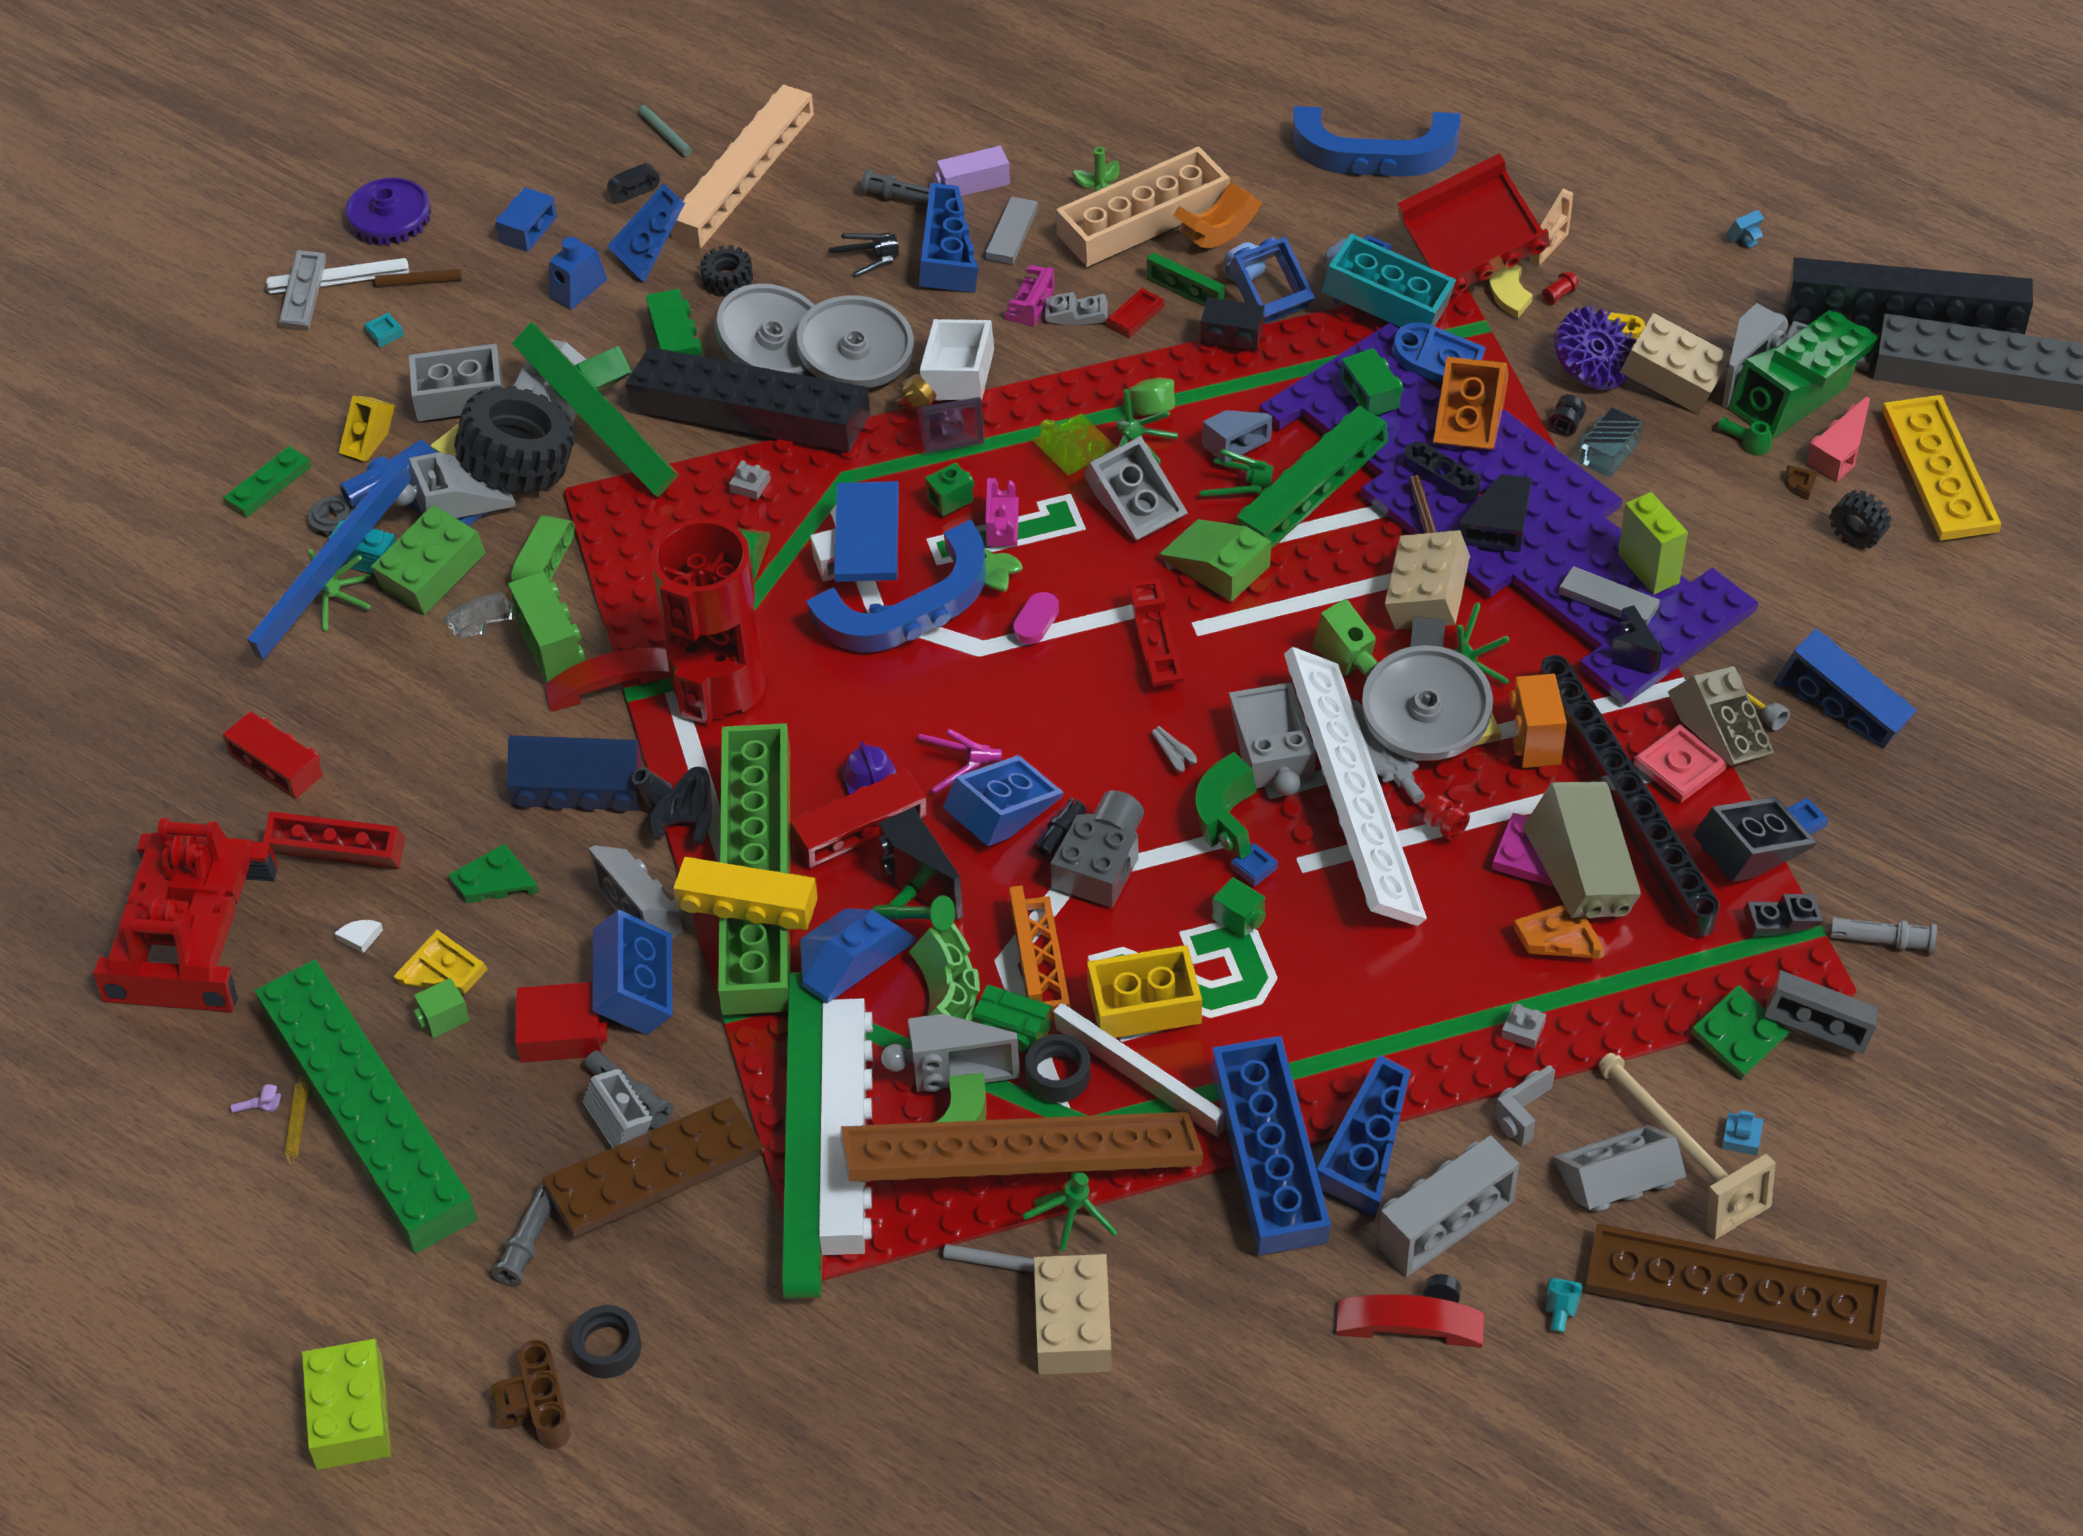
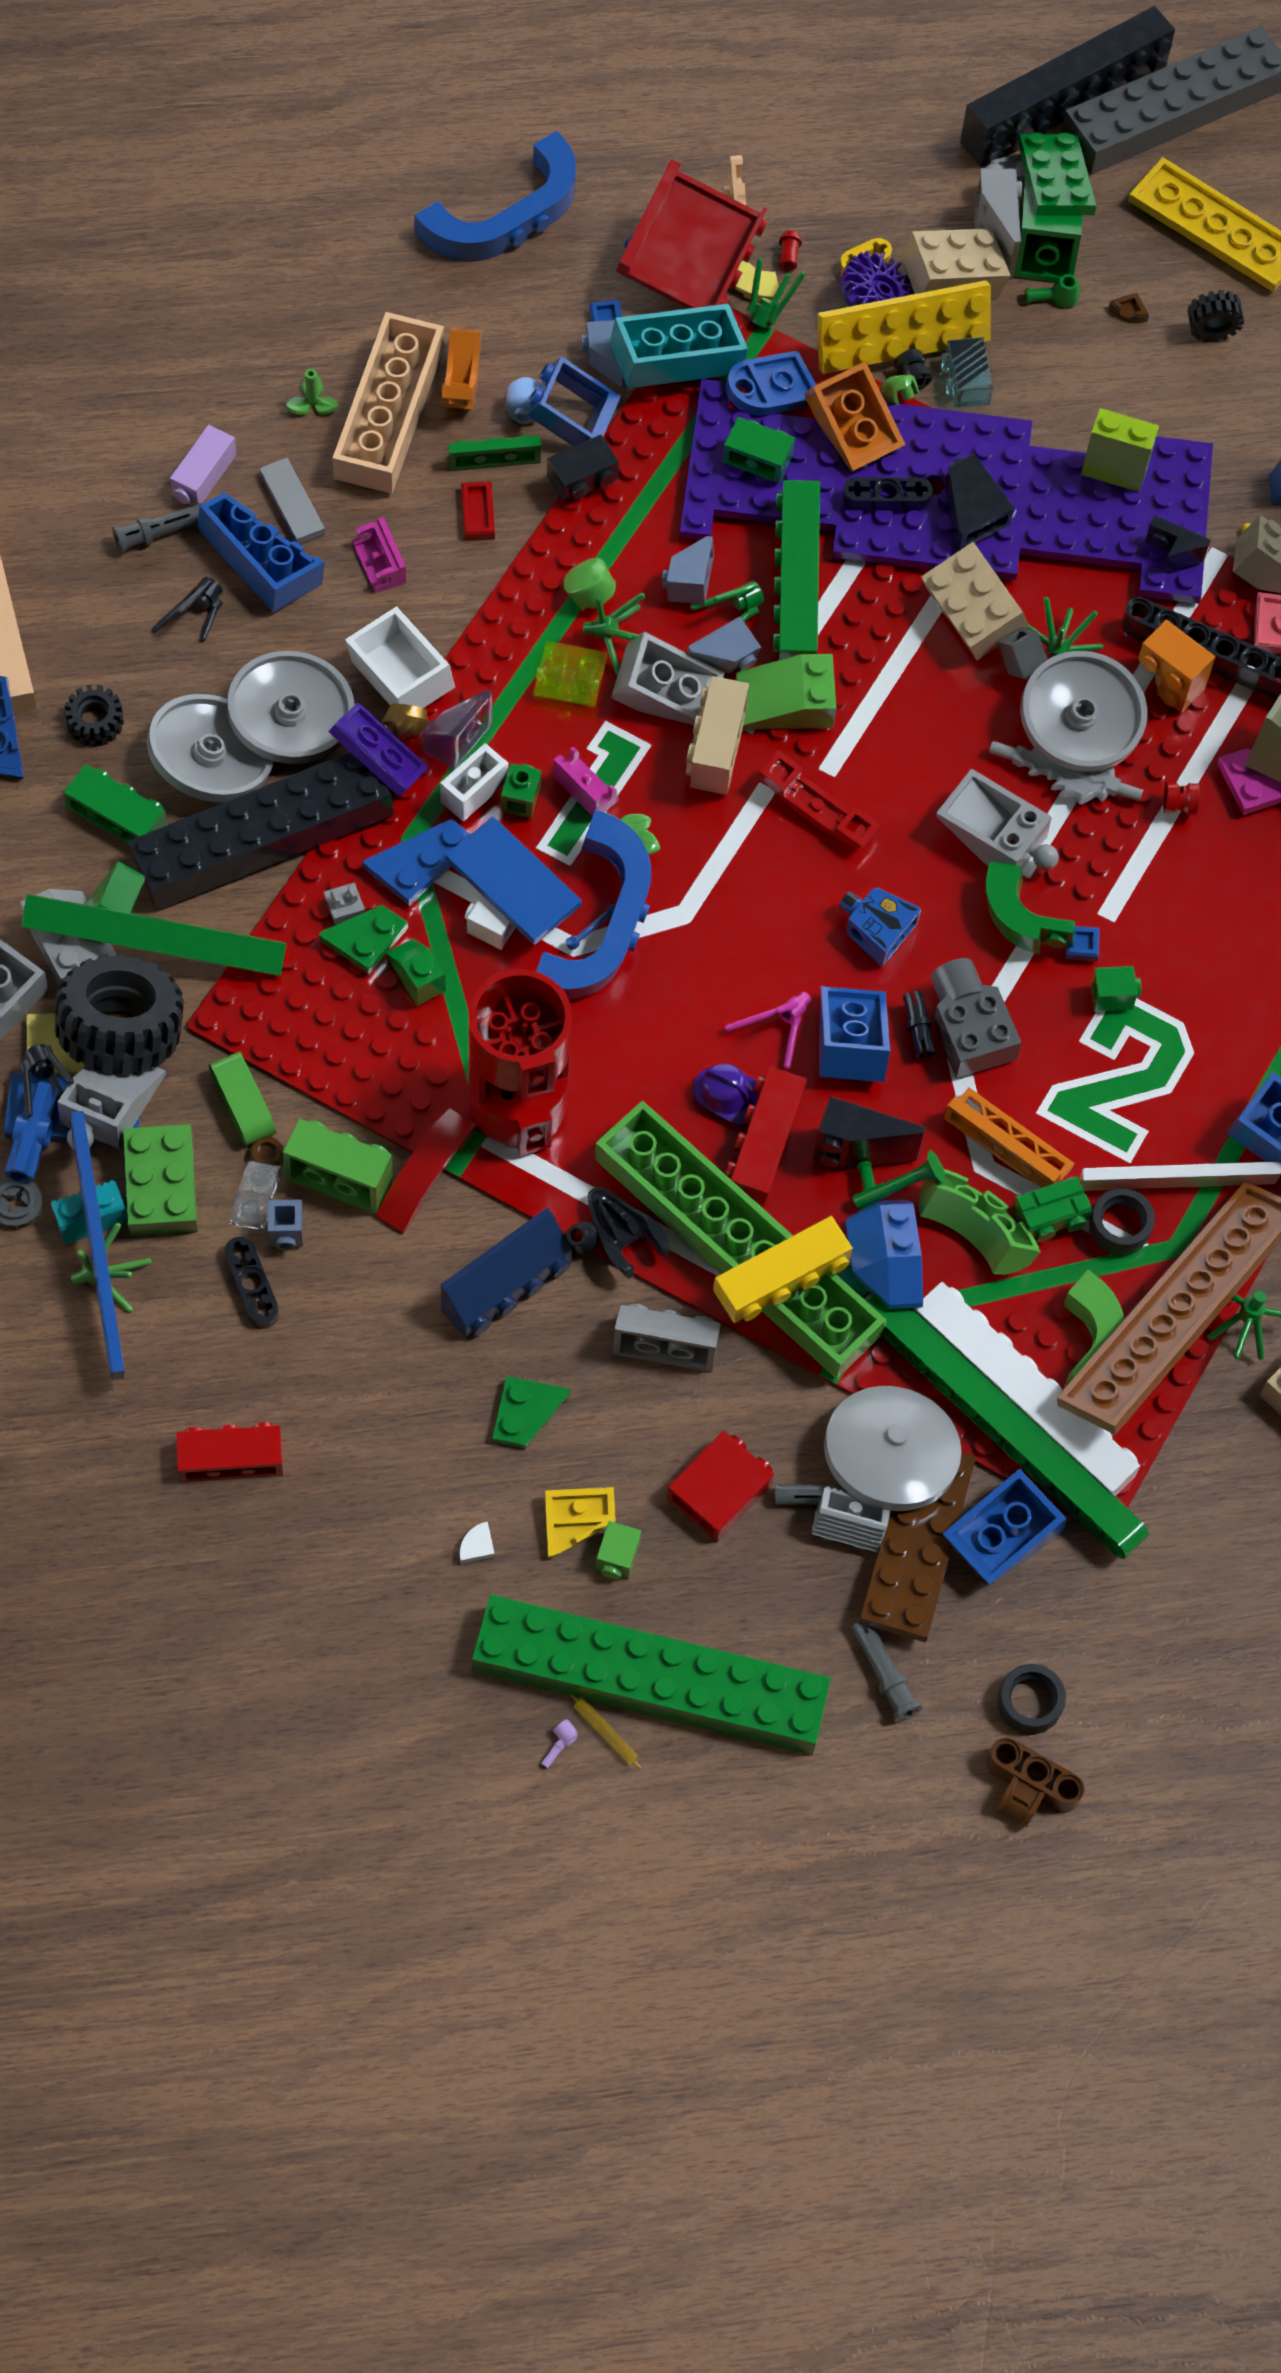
camera: 50 degrees left, 15 degrees up
(185, 901) = (336, 1675): red container -> none
(334, 839) = (376, 1484): red brick -> none
(346, 1404) = (908, 1907): lime brick -> none
(416, 679) = (254, 1268): none -> black beam
(436, 440) = (41, 1063): none -> black plant
(473, 641) = (285, 1224): none -> sand blue brick
(632, 972) = (742, 1401): blue brick -> none
(700, 1085) = (892, 1448): none -> light grey dish
(719, 1205) = (1006, 1528): none -> blue slope
(742, 508) = (365, 937): none -> green wing
(816, 487) = (417, 862): none -> blue wing
(872, 394) = (378, 749): none -> dark purple tile
(916, 457) = (473, 782): none -> white brick
(954, 1047) = (1047, 1272): light grey slope -> none
(989, 1258) = (1222, 1403): light grey bar -> none
(1036, 618) = (706, 855): dark pink tile -> none
(1069, 311) = (429, 543): light grey slope -> none
(1110, 742) = (879, 922): none -> blue torso
(1123, 538) = (717, 735): none -> tan brick
(1145, 991) = (1126, 1111): yellow brick -> none
(1174, 750) = (927, 891): light grey piece -> none
(1202, 493) = (727, 647): none -> sand blue slope
(1345, 639) = (968, 701): bright green torso -> none
(1355, 788) = (1099, 821): white plate -> none
(1422, 504) = (907, 538): reddish brown bar -> none
(1494, 311) = (766, 311): none -> green plant
(1537, 412) = (904, 383): none -> bright green arm
(1601, 379) = (891, 326): none -> yellow plate
(1606, 594) = (1113, 518): light grey tile -> none
(1746, 229) = (878, 95): dark azure tile -> none
(1838, 447) = (1135, 252): coral slope -> none

